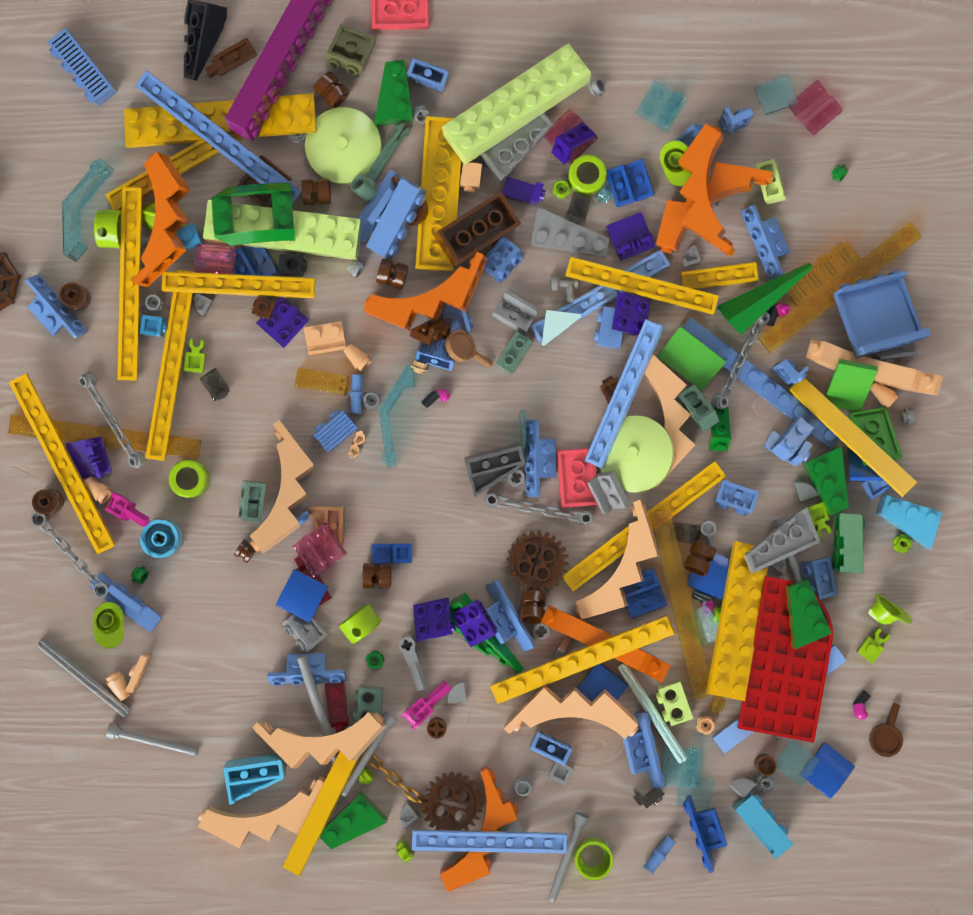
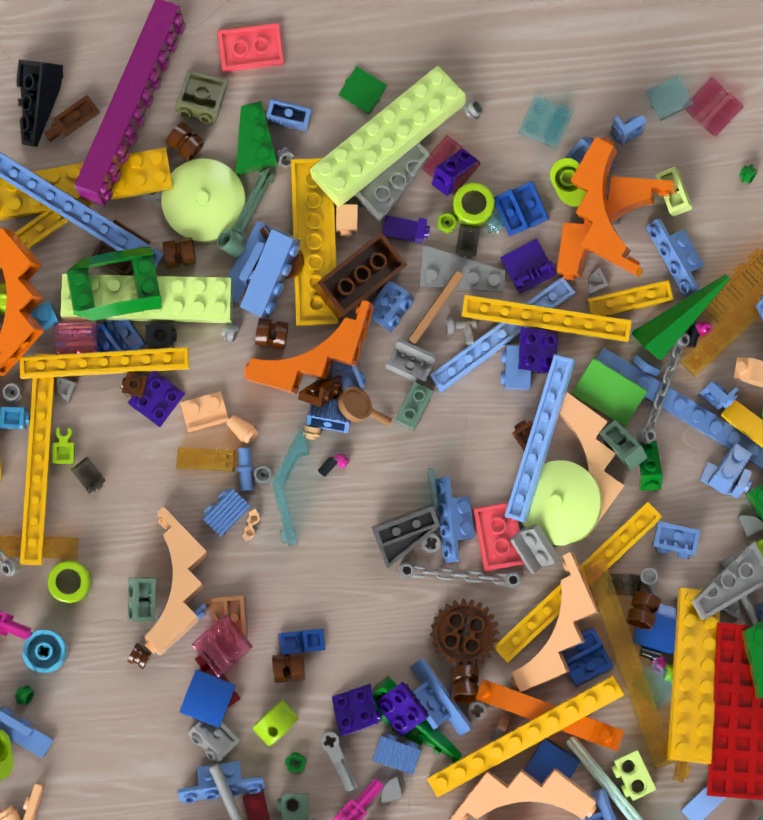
camera: 10 degrees left, 5 degrees down
(465, 662) = (397, 754): none -> medium blue brick
(497, 59) = (362, 90): none -> green piece
(543, 264) = (435, 307): none -> medium nougat tile
(556, 323) = (457, 368): light aqua tile -> none
(700, 725) = (677, 796): light nougat plate -> none
(727, 338) = (646, 366): none -> medium blue tile

